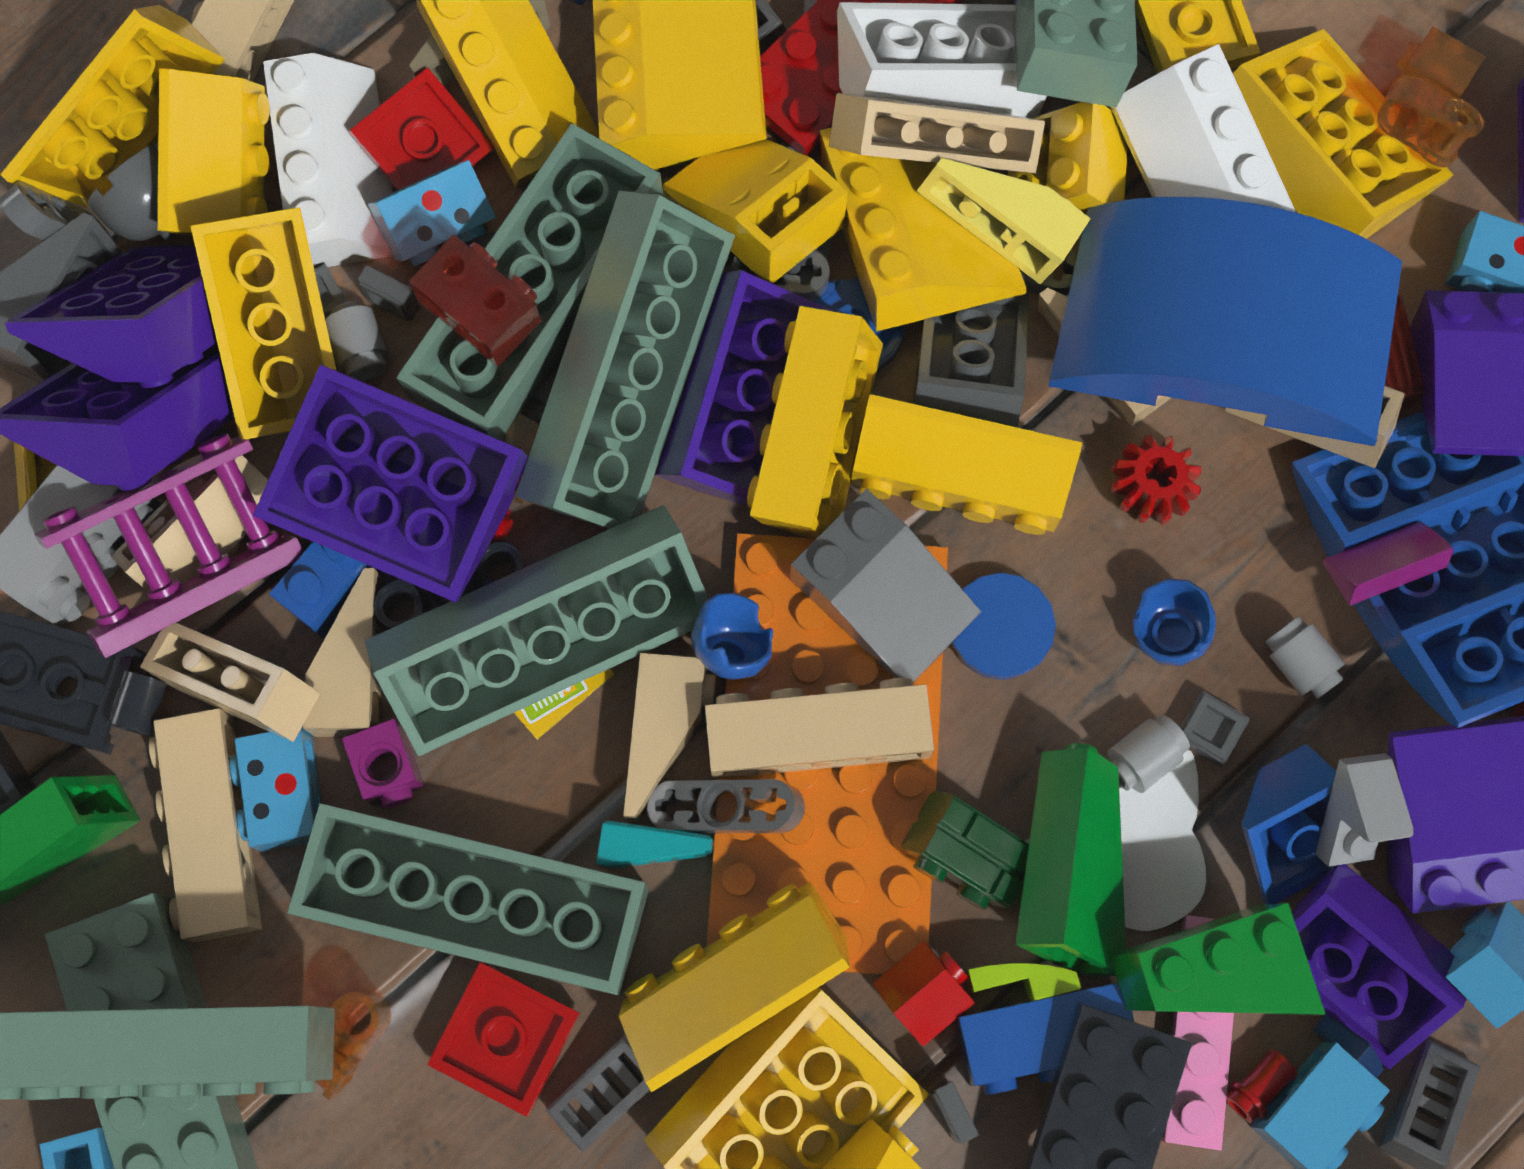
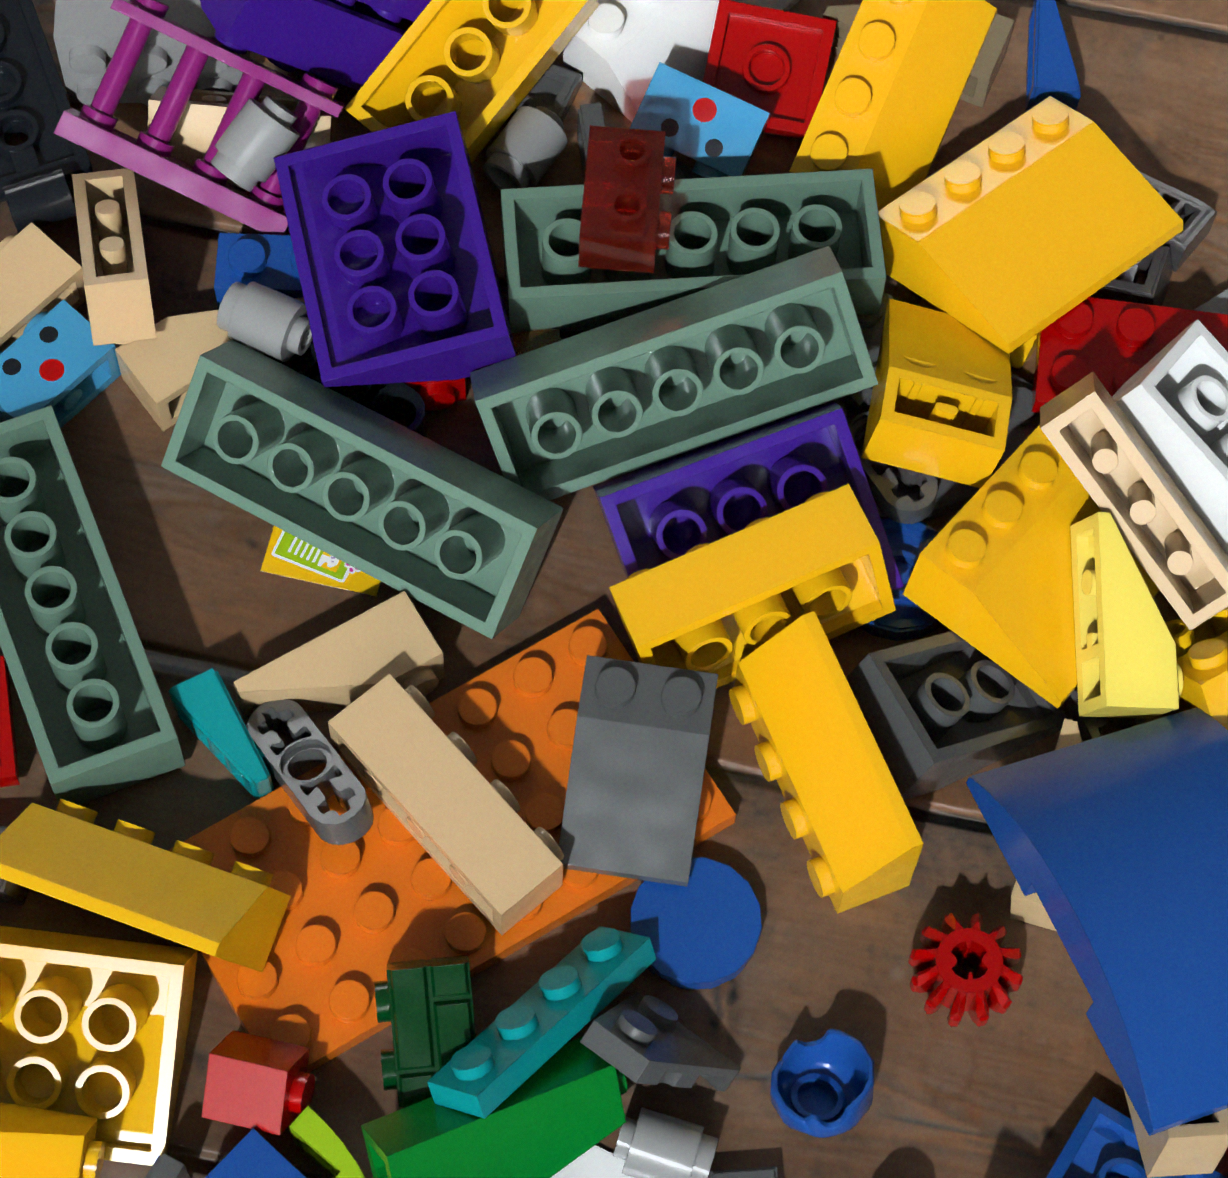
camera: 50 degrees right, 10 degrees down
(227, 519) = (254, 140): none -> light grey brick
(367, 748) = (129, 423): magenta brick -> none
(368, 607) = (265, 320): none -> light grey brick
(731, 637) = (480, 657): blue hair -> none
(1019, 775) = (541, 1021): none -> teal plate
(1078, 713) = (654, 1048): none -> dark grey wing

